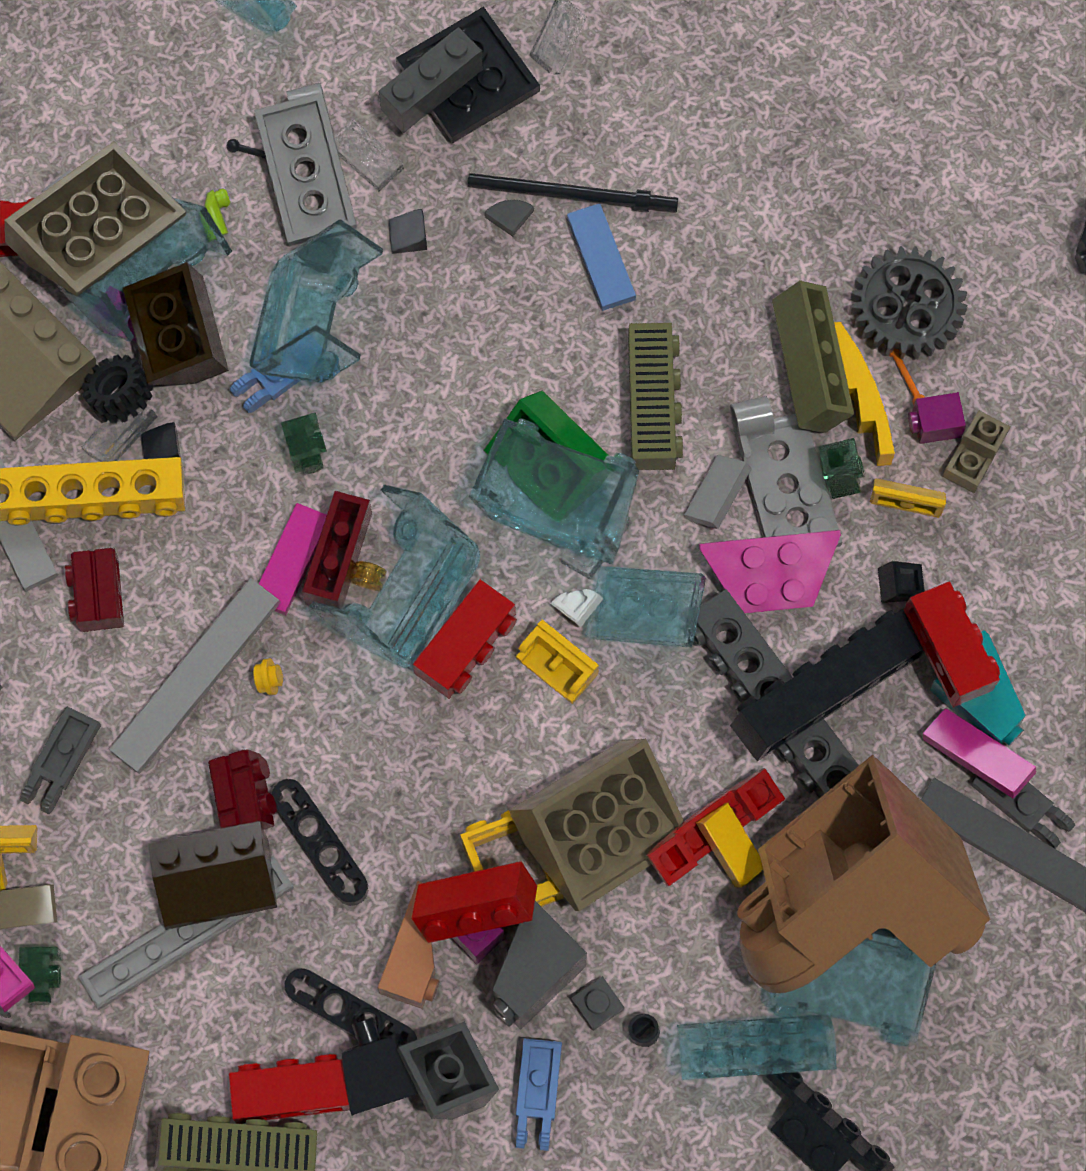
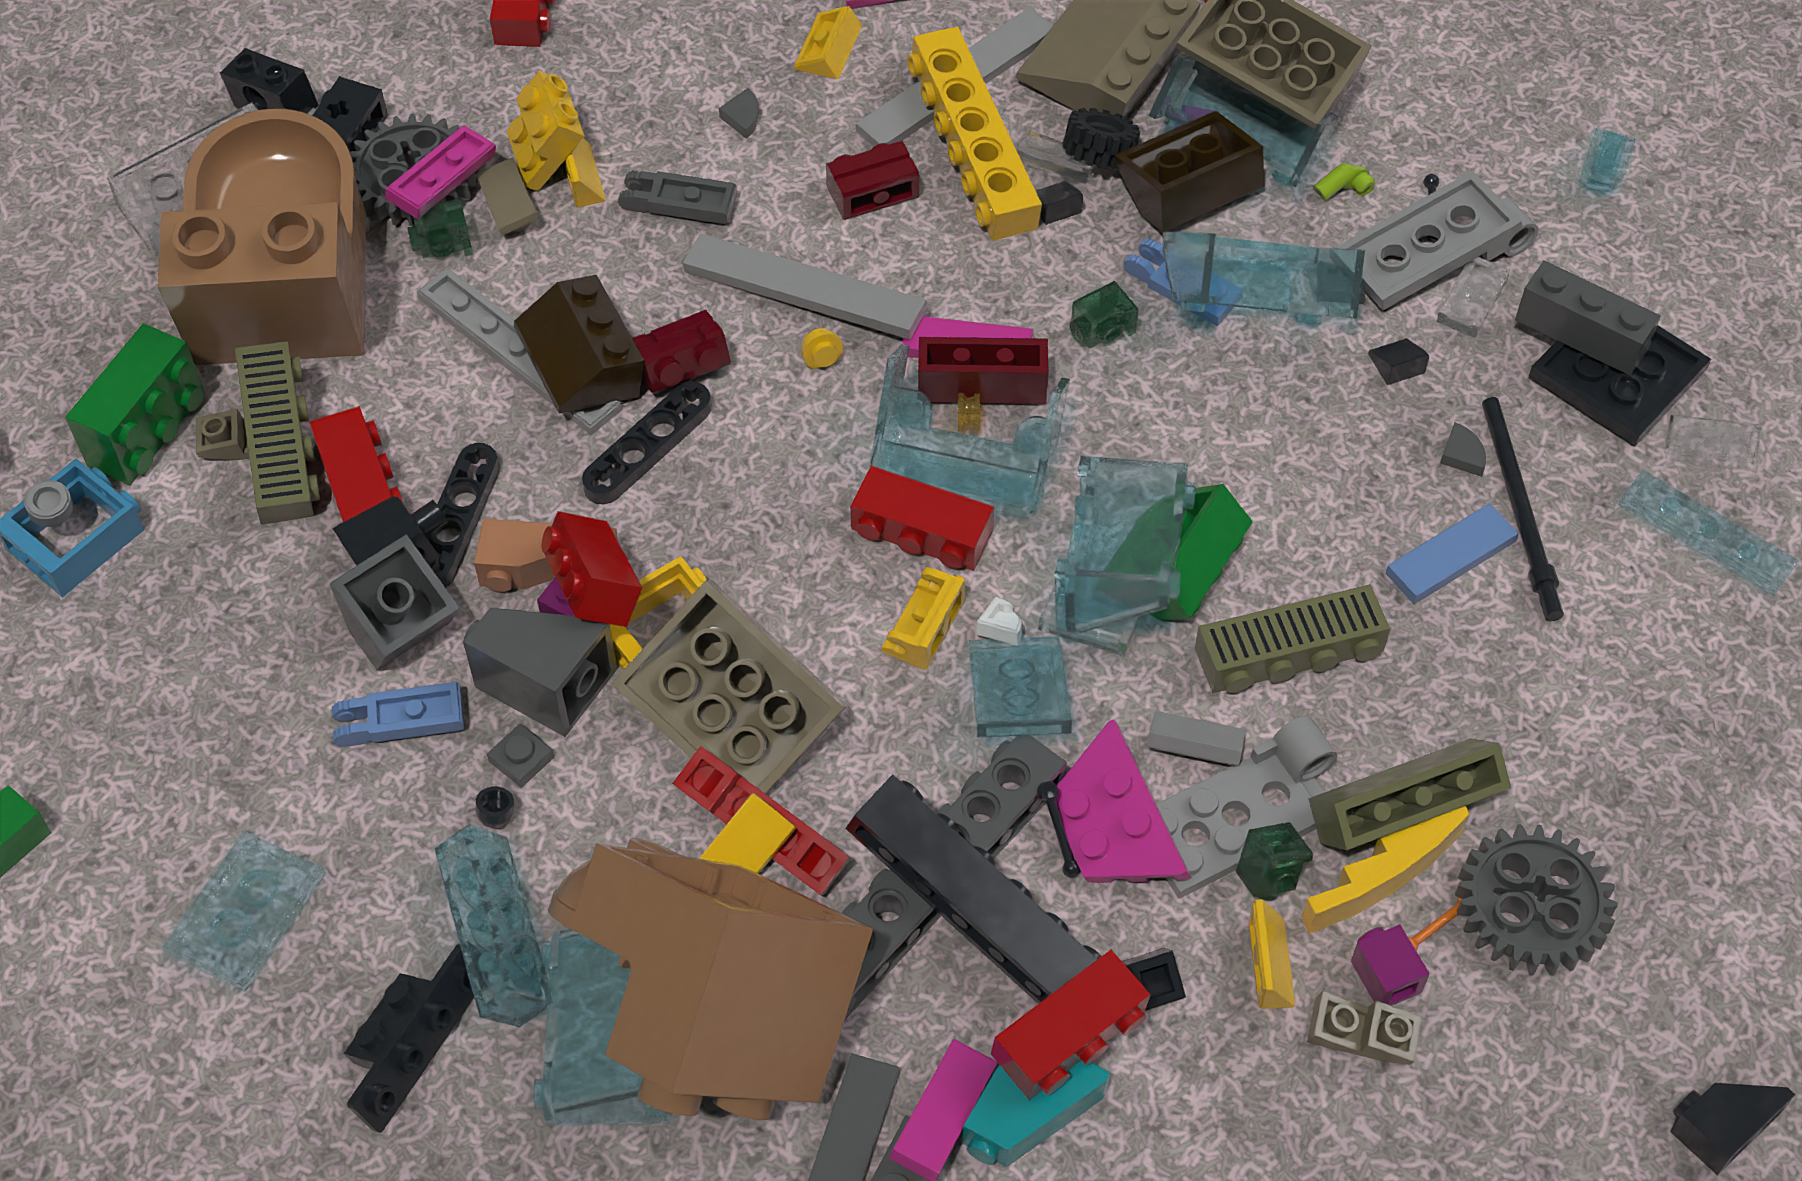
camera: 75 degrees right, 15 degrees down
(631, 71) = (1708, 532): none -> clear light blue tile
(748, 609) = (1048, 791): none -> black hinge

